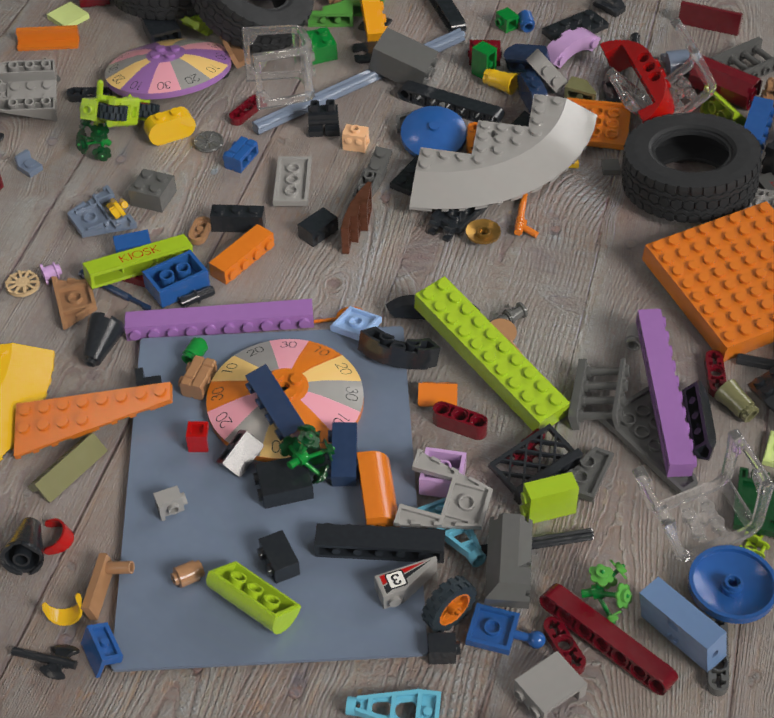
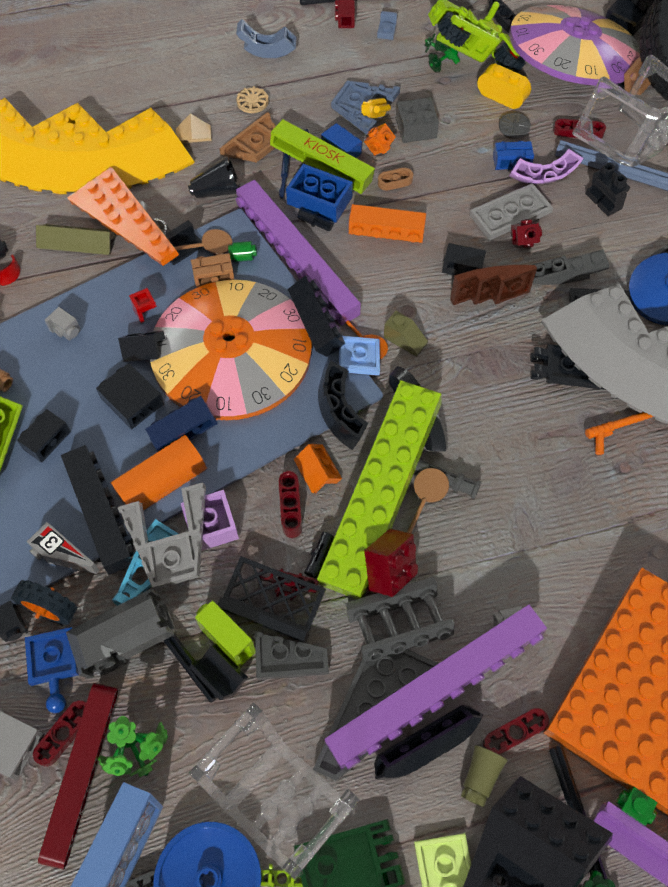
camera: 60 degrees right, 15 degrees up
(21, 334) = (193, 130): none -> tan slope
(50, 271) = (273, 108): lavender brick -> none
(153, 219) = (379, 139): none -> orange brick
(166, 366) = (214, 241): none -> medium nougat piece
(236, 217) = (427, 197): black brick -> none
(274, 401) = (195, 340): dark blue brick -> none
(277, 135) = (544, 174): none -> lavender brick
(300, 327) = (316, 316): none -> black brick
(307, 451) = (145, 390): dark green plant -> none
(323, 181) = (526, 233): none -> dark red brick
(355, 138) = (607, 228): light nougat head -> none
(355, 289) = (404, 333): none -> olive slope
(483, 231) = (564, 394): pearl gold dish -> none
(514, 421) = (319, 555): none -> black pin
(557, 370) = (391, 562): none -> dark red brick
(574, 518) = (219, 673): none -> black panel

